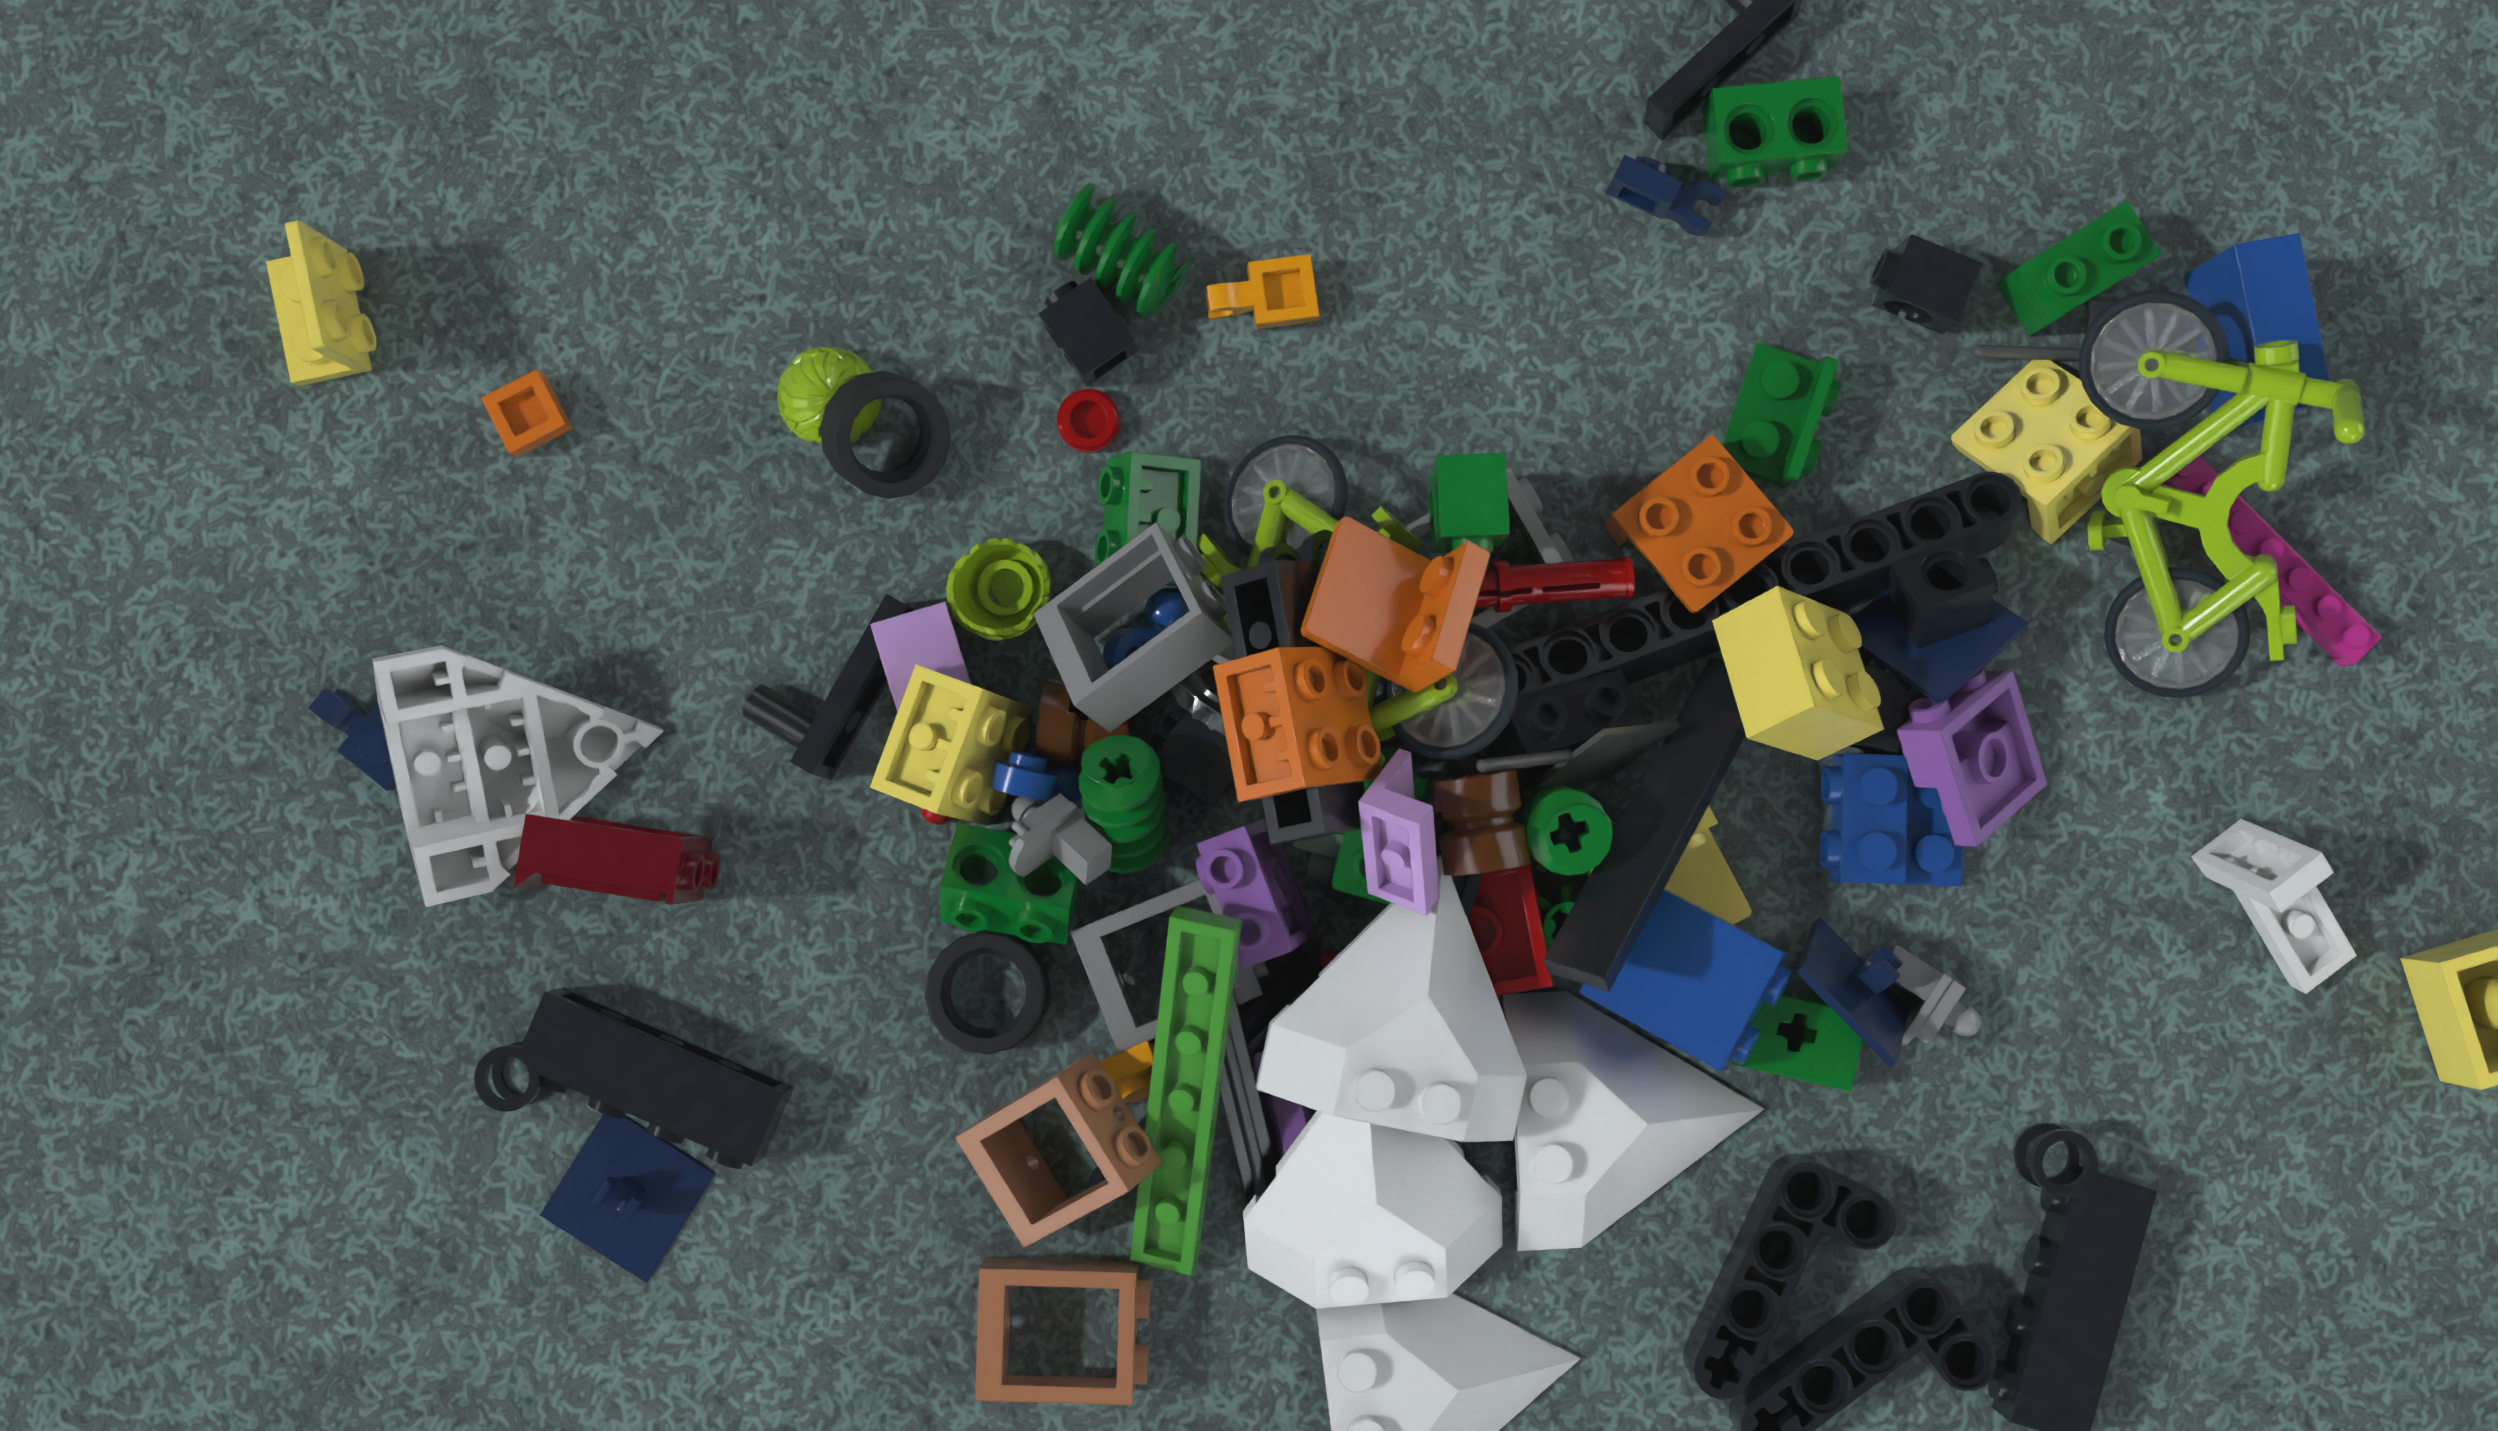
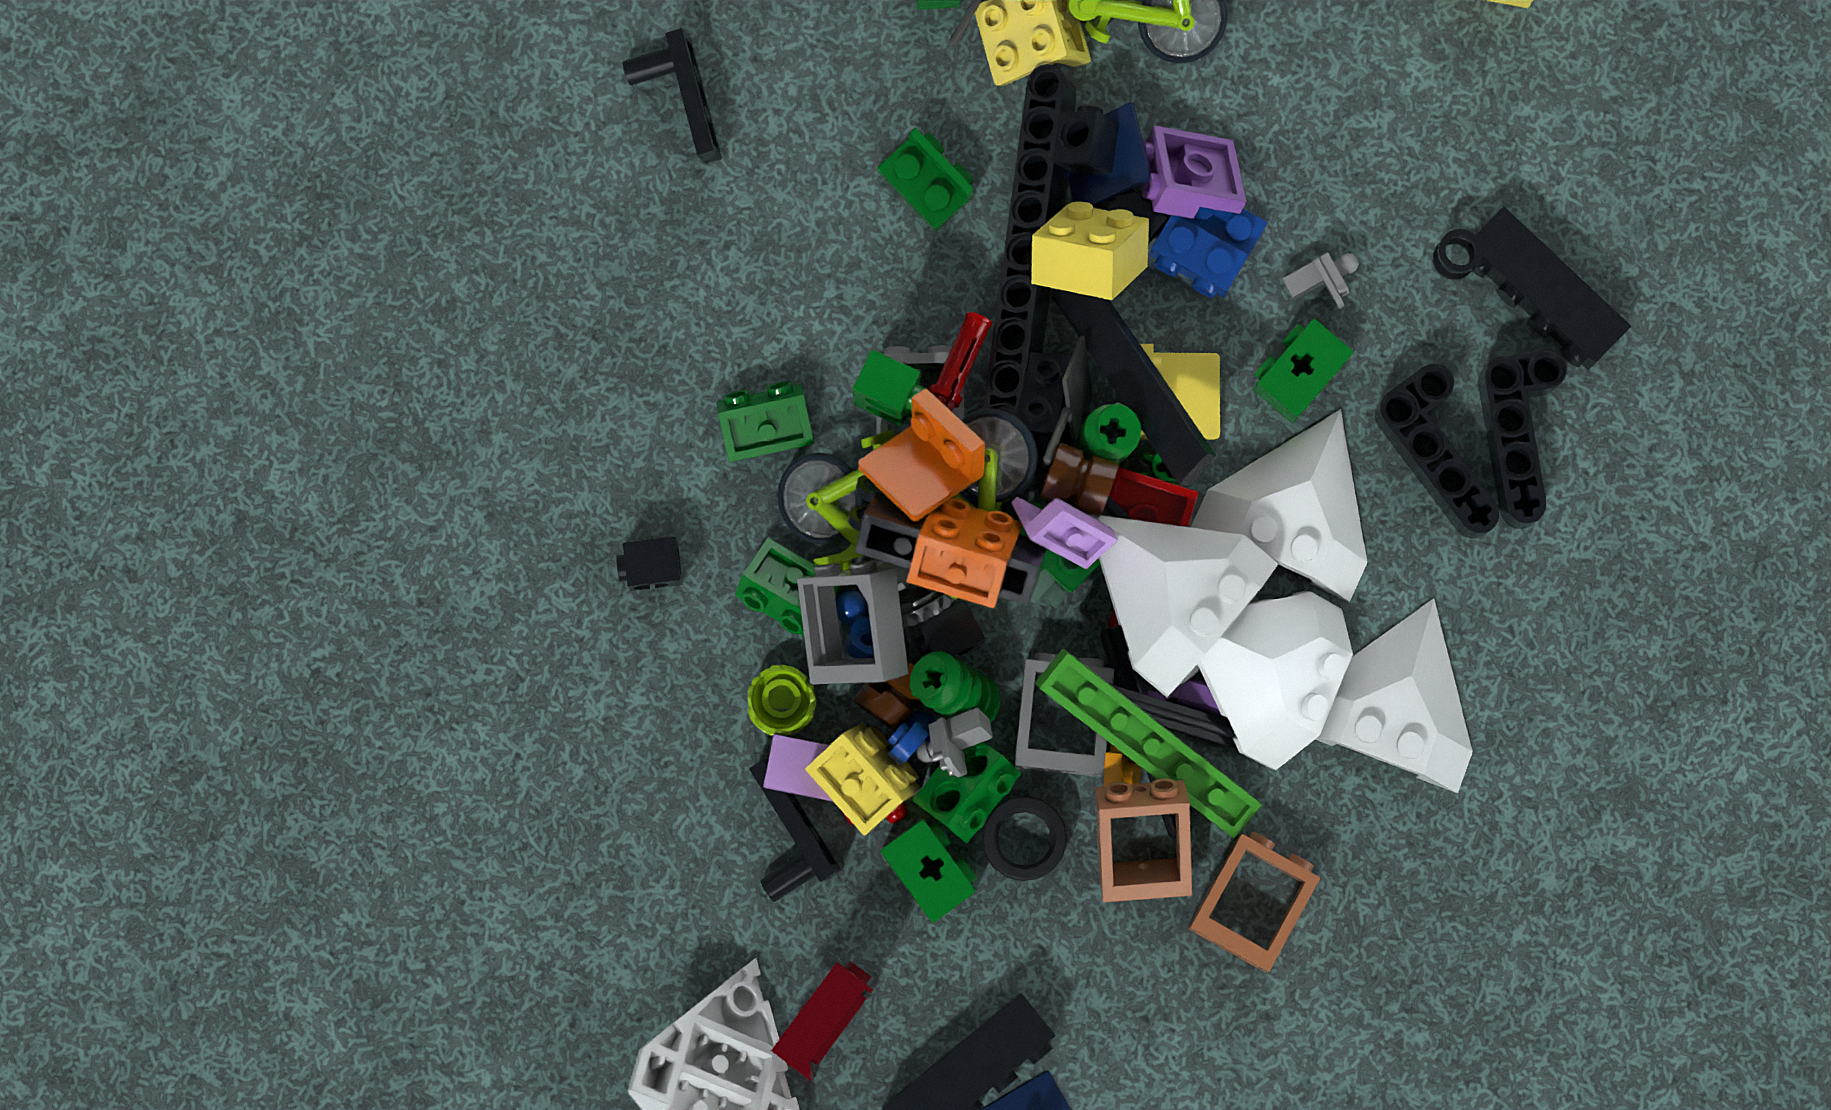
camera: 70 degrees left, 5 degrees down
(320, 308) = (374, 1038): light yellow bracket -> none
(527, 413) = (511, 938): orange plate -> none
(812, 382) = (603, 745): lime hair -> none
(852, 910) = (933, 896): none -> green brick
(931, 445) = (629, 740): black tyre -> none
(1088, 421) = (705, 594): red tile -> none
(1118, 254) = (614, 519): green piece -> none
(1259, 887) = (1042, 637): medium lavender plate -> none
(1276, 291) = (689, 439): light orange plate -> none
(1348, 375) = (764, 421): none -> green bracket
(1650, 188) = (748, 182): dark blue plate -> none
(1697, 982) = (1240, 406): blue brick -> none
(1701, 524) = (970, 259): orange bracket -> none
(1768, 115) = (745, 88): green brick -> none
(1857, 988) = (1294, 315): dark blue piece -> none
(1924, 283) = (895, 51): black brick -> none
(2280, 894) = (1372, 43): white bracket -> none

